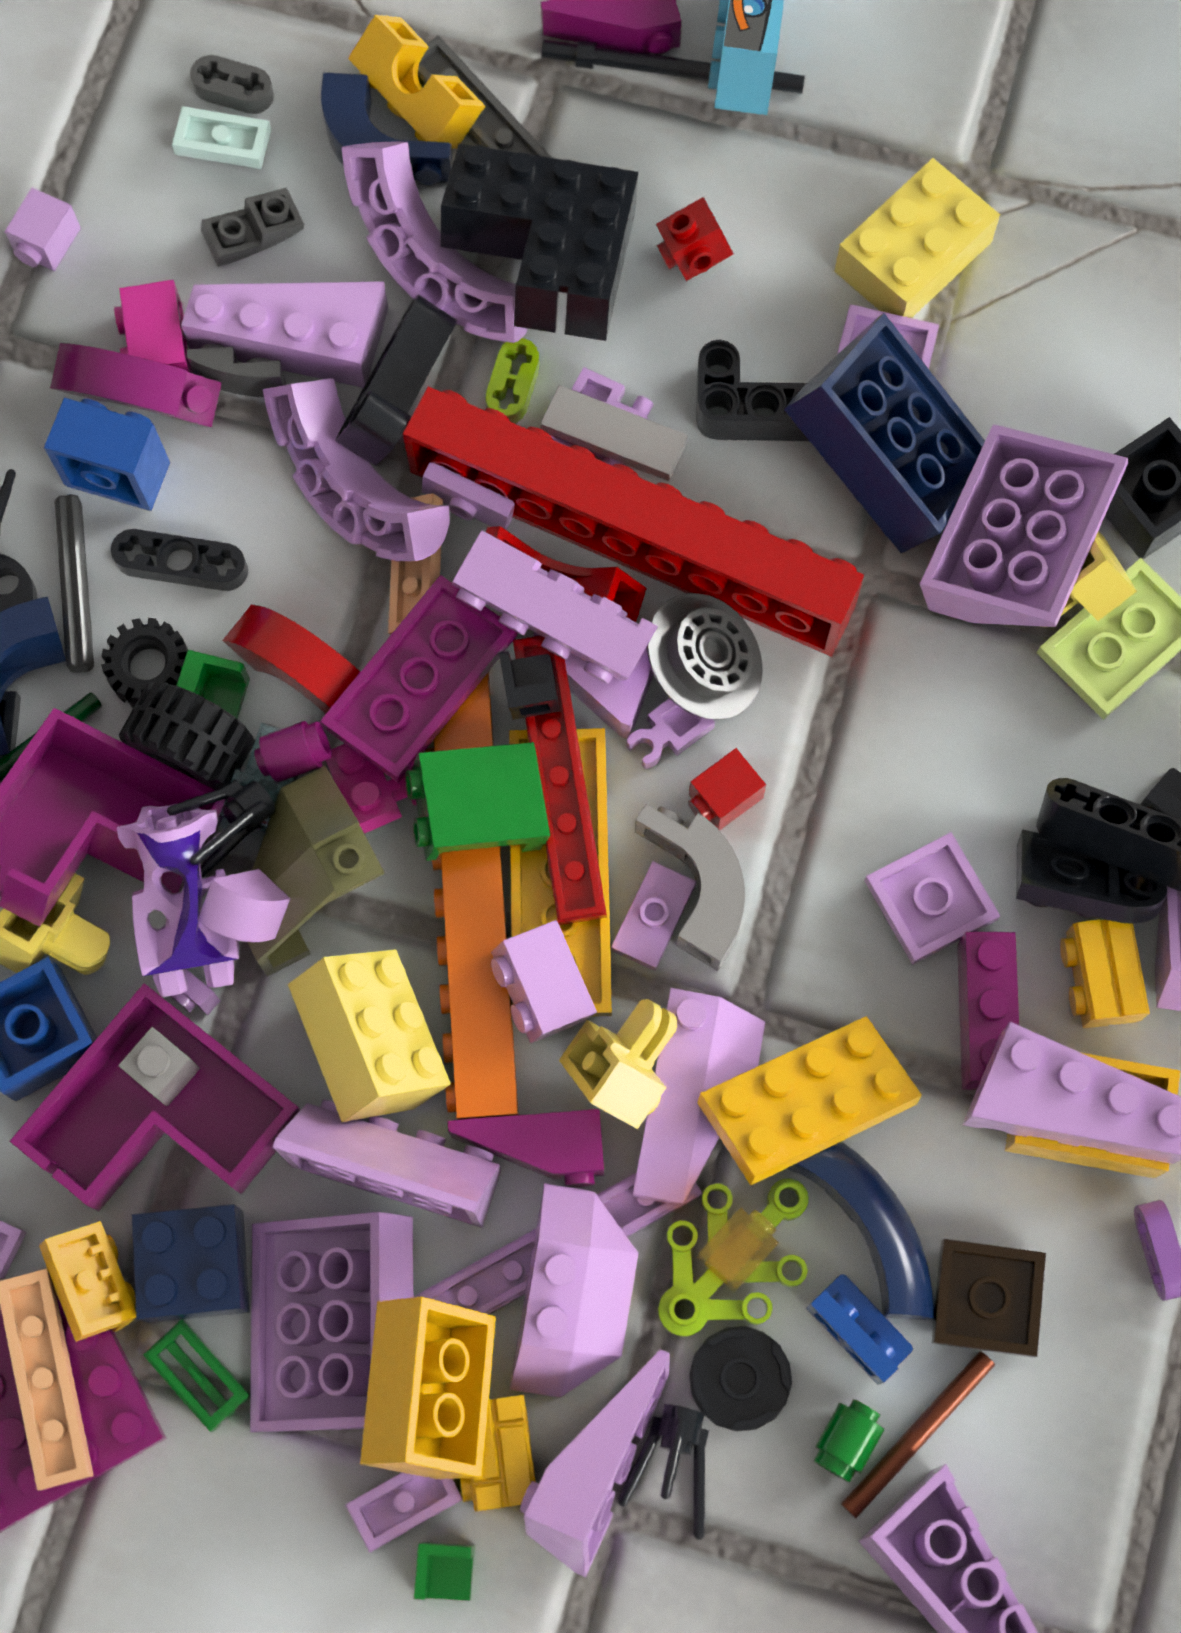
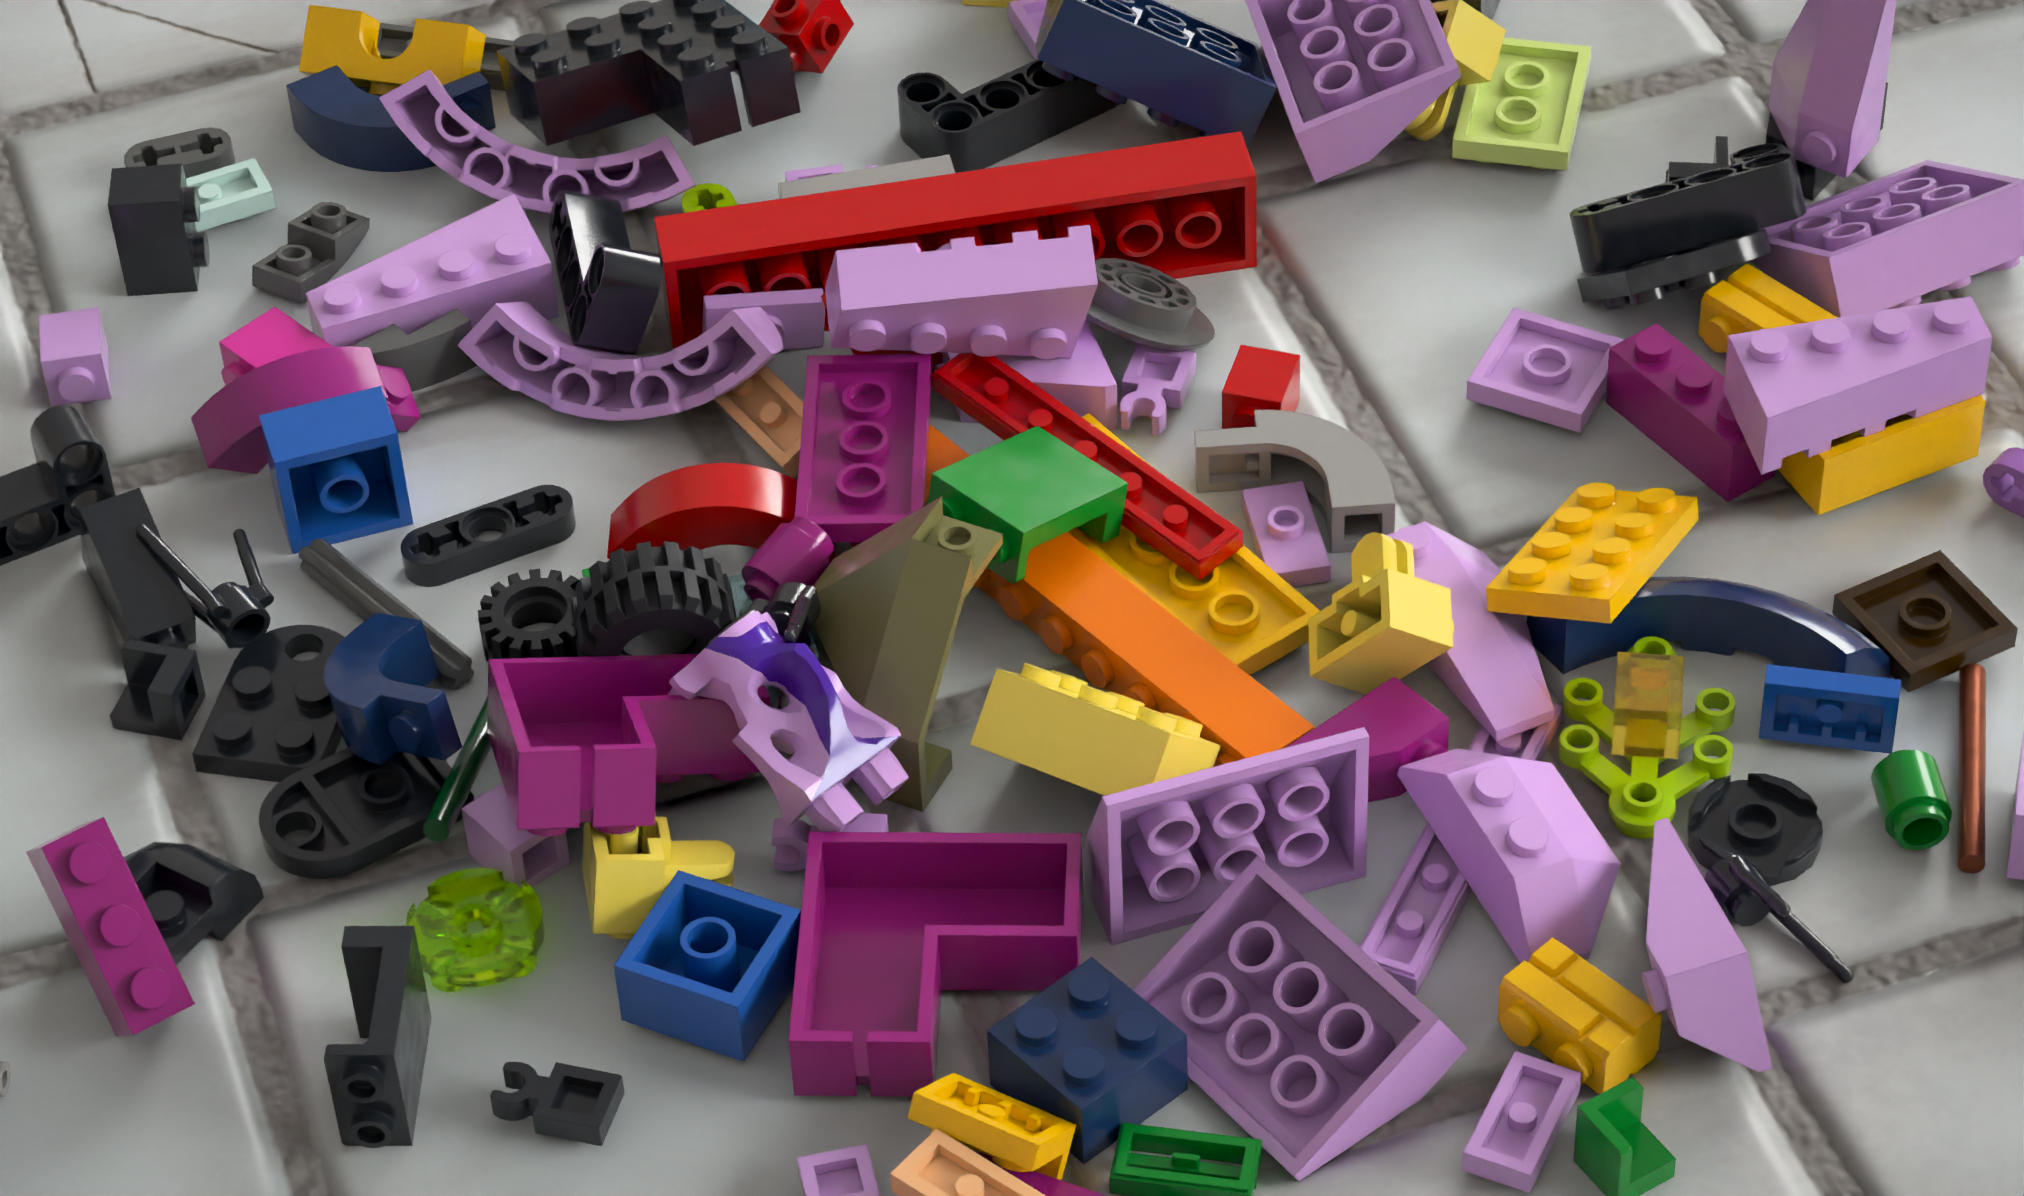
camera: 35 degrees left, 30 degrees down
(151, 155) = (156, 229): none -> black brick
(159, 1066) = (890, 904): light grey brick -> none
(244, 907) = (877, 662): lavender brick -> none
(428, 1389) = (1458, 955): yellow brick -> none
(529, 685) = (989, 389): black panel -> none
(542, 982) = (1236, 601): lavender brick -> none

